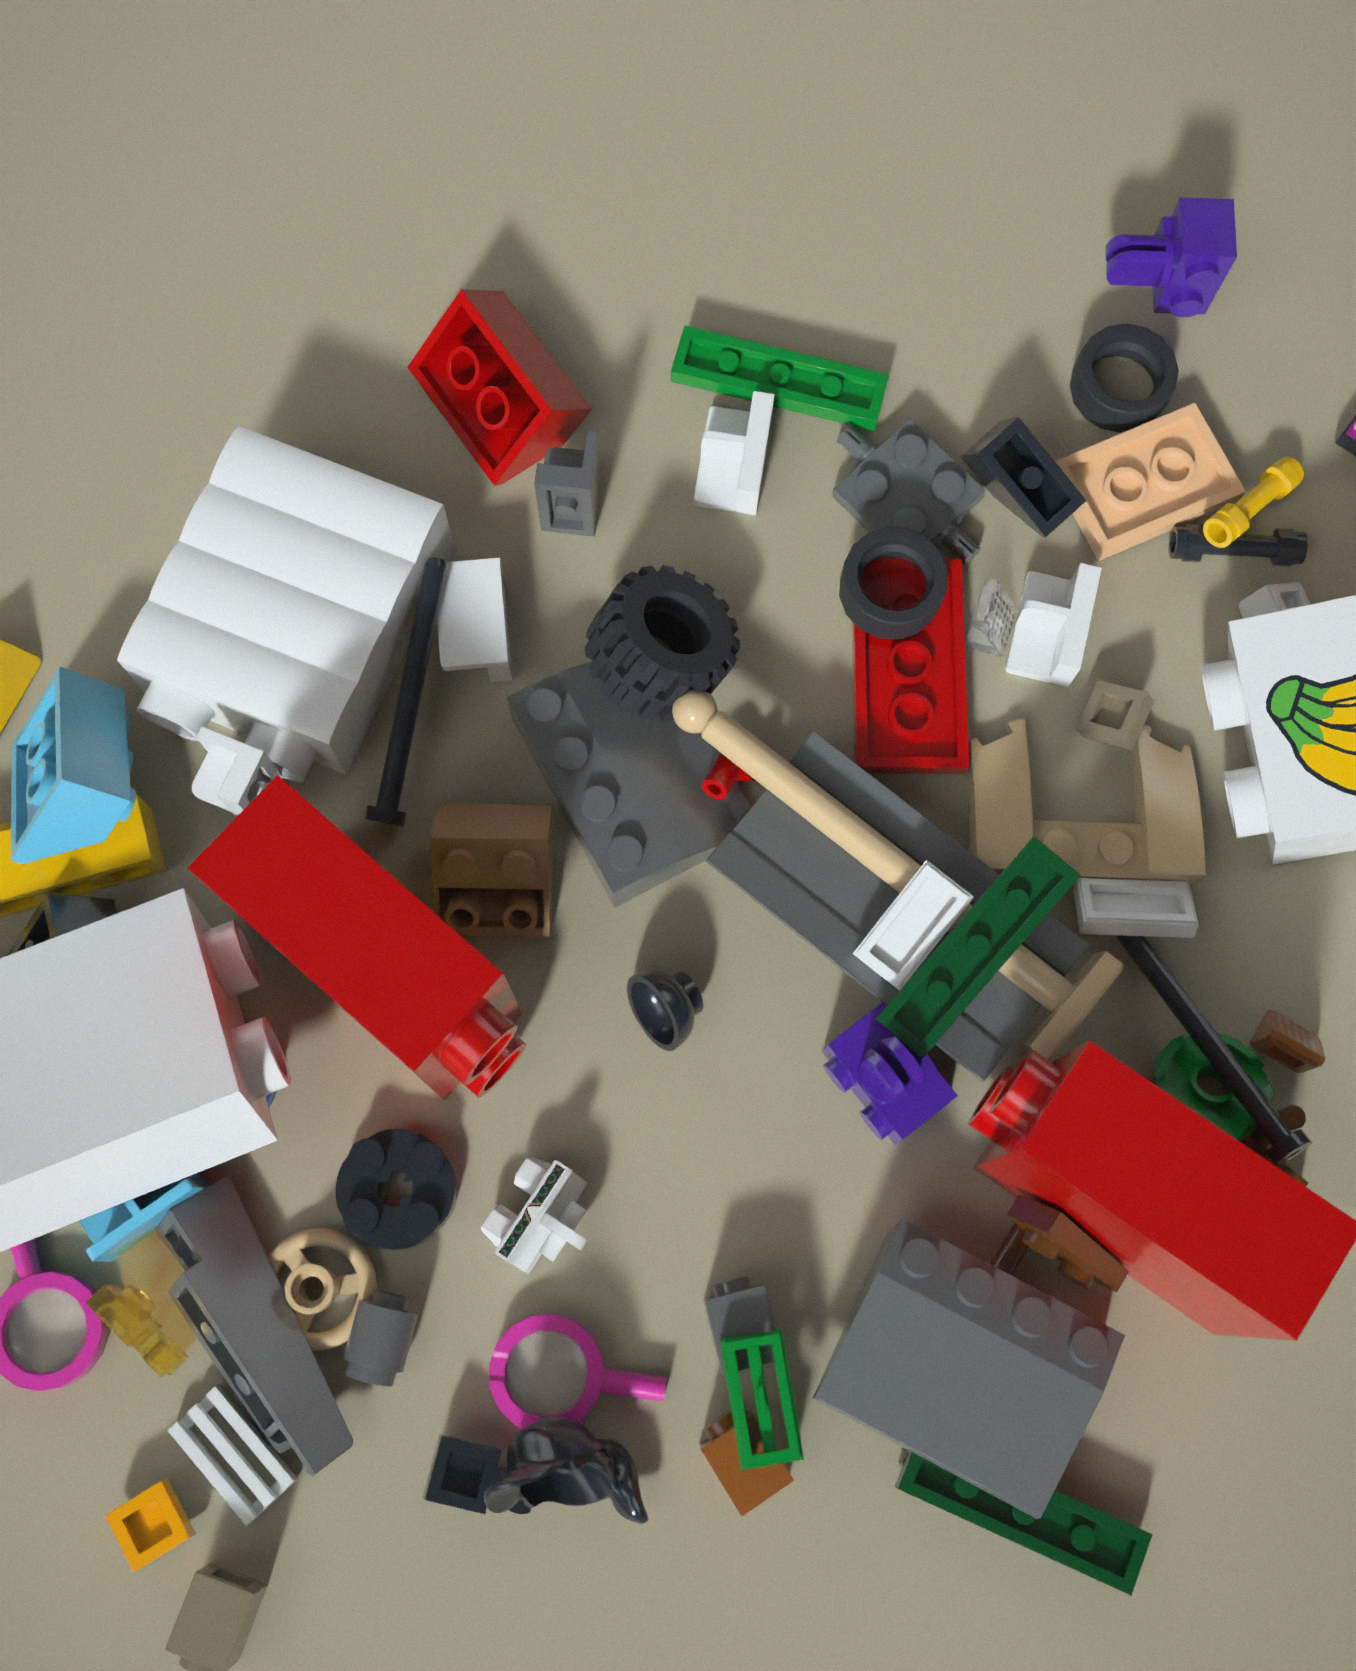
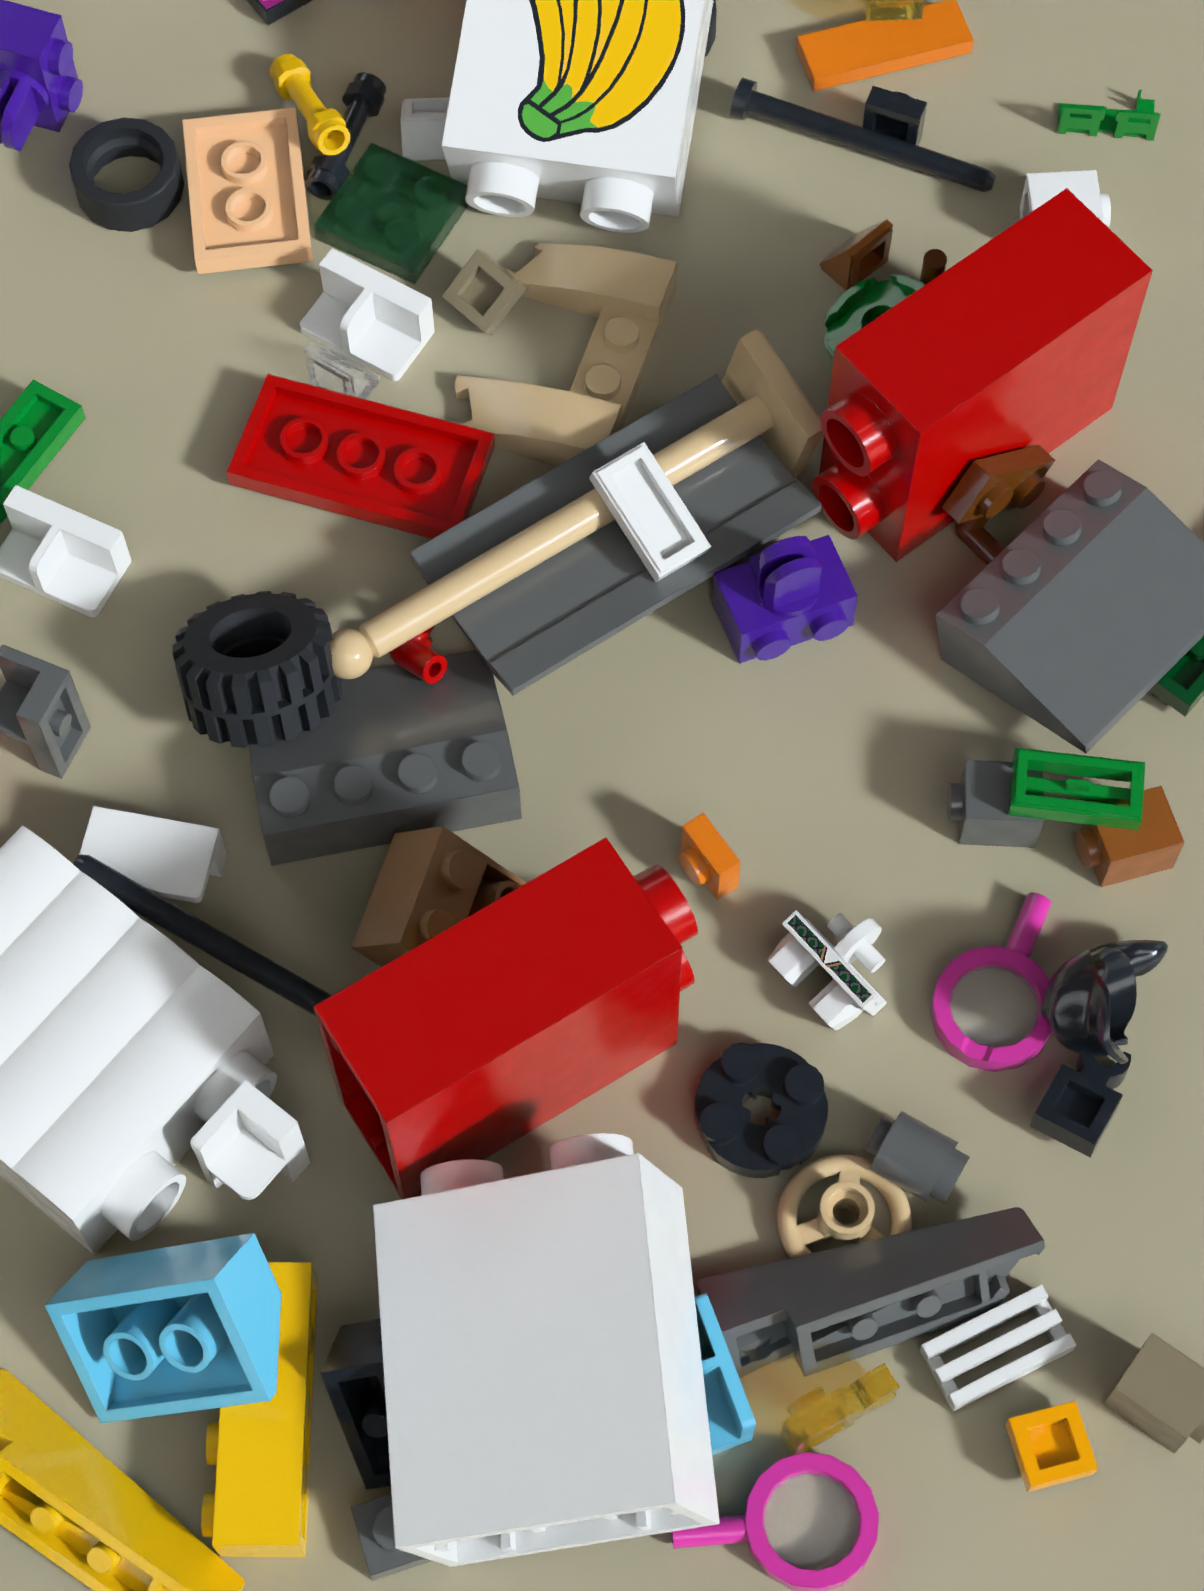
camera: 70 degrees left, 10 degrees down
(610, 1076) = (708, 857): none -> orange plate
(664, 1006) = (651, 788): black piece -> none
(909, 485) = (170, 406): dark grey plate -> none
(910, 547) = (259, 399): black tyre -> none
(978, 947) = (693, 455): dark green plate -> none
(1023, 476) = (199, 290): black slope -> none
(1135, 907) = (685, 338): white tile -> none
(1173, 610) = (392, 213): none -> clear green plate
(1284, 1142) = (828, 313): black bar -> none

